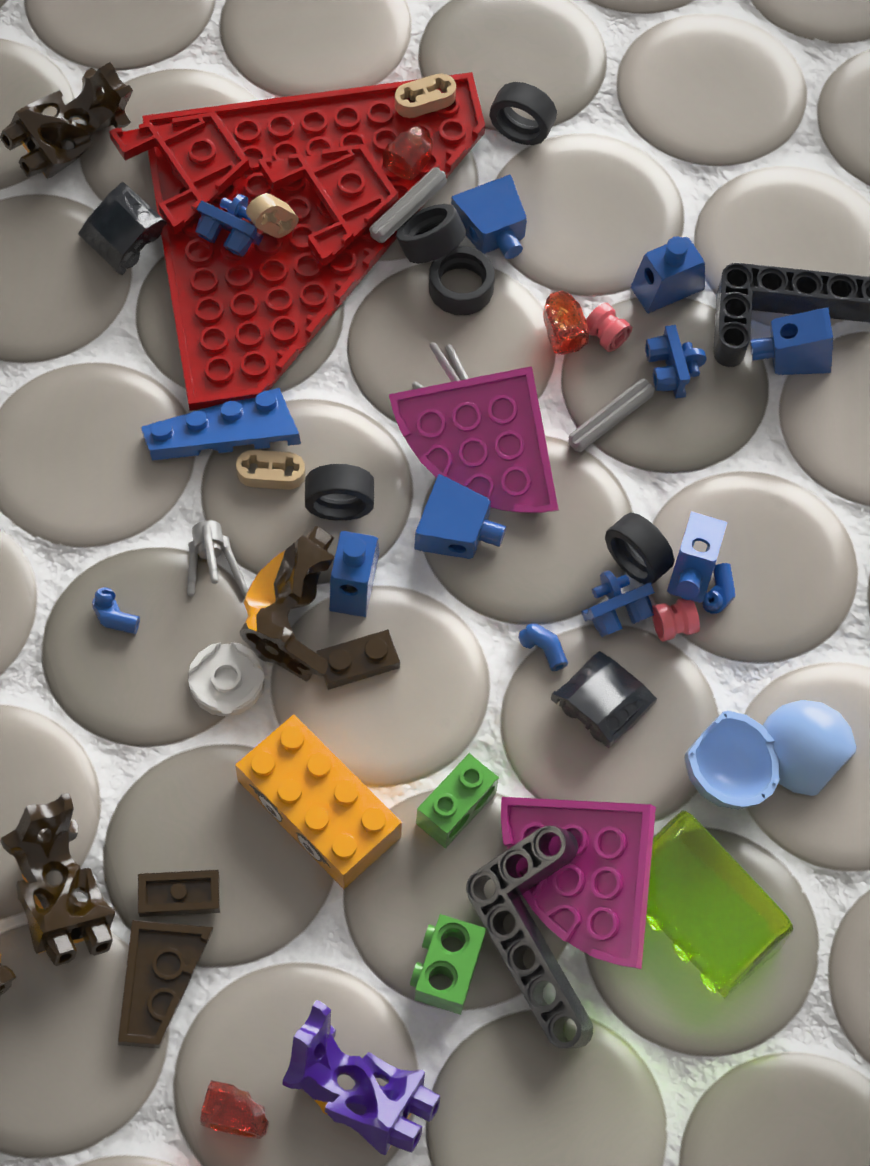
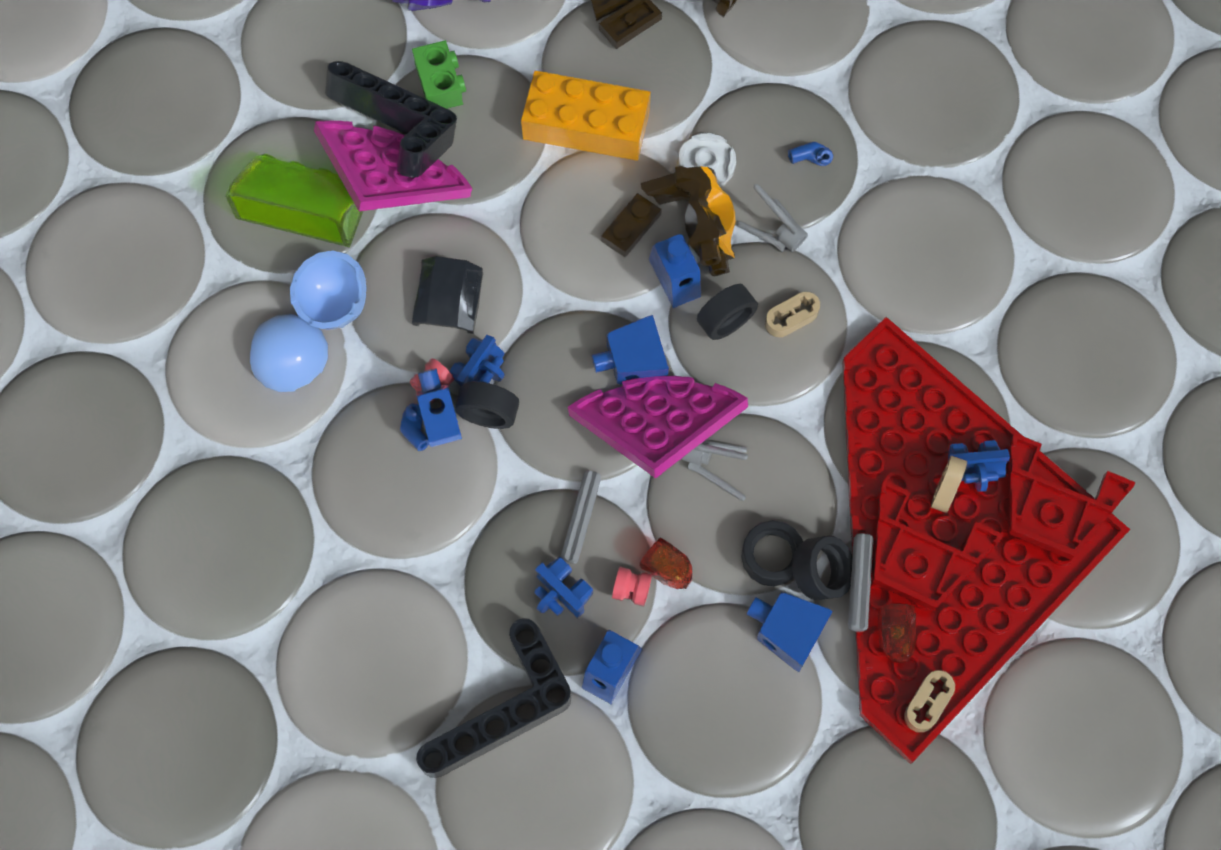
camera: 150 degrees right, 5 degrees up
(44, 134) = (1179, 454): dark brown hips -> none
(122, 228) = (1054, 419): black slope -> none
(222, 427) = (846, 321): blue wing -> none
(457, 800) = (498, 167): bright green brick -> none
(532, 101) = (836, 737): black tyre -> none
(546, 640) = (514, 312): blue arm -> none
(798, 344) = (470, 663): blue torso -> none

